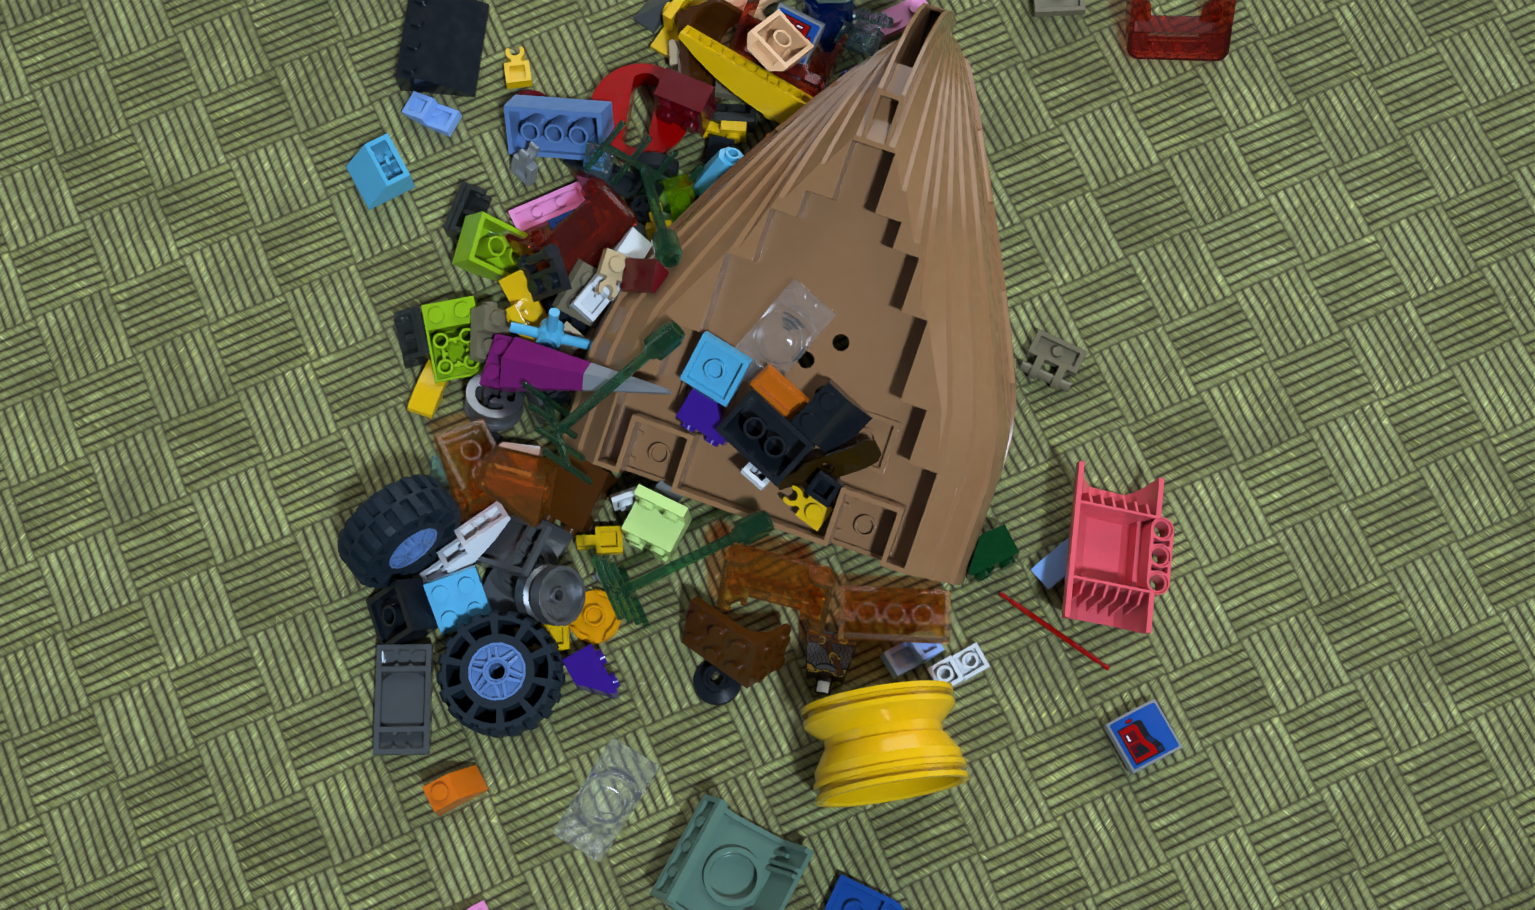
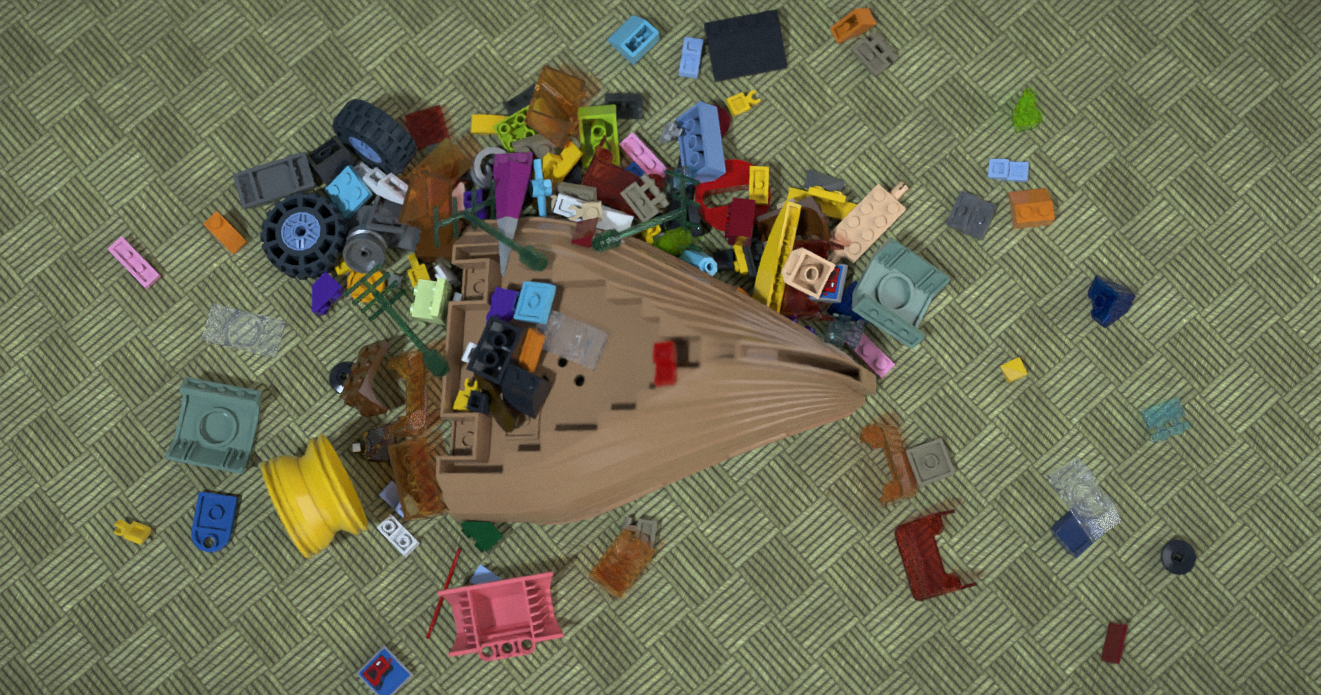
camera: 75 degrees right, 5 degrees up
(401, 461) = (427, 126): none -> clear red plate
(434, 288) = (555, 105): none -> clear orange windscreen
(528, 435) = (481, 195): none -> dark purple slope
(547, 281) = (579, 169): black plate -> none
(618, 210) = (640, 202): none -> dark tan plate
(638, 71) = (759, 184): none -> yellow plate
(873, 197) = (665, 363): none -> red slope
(1082, 31) = (902, 484): none -> clear orange windscreen
(1085, 387) = (621, 564): none -> clear orange slope

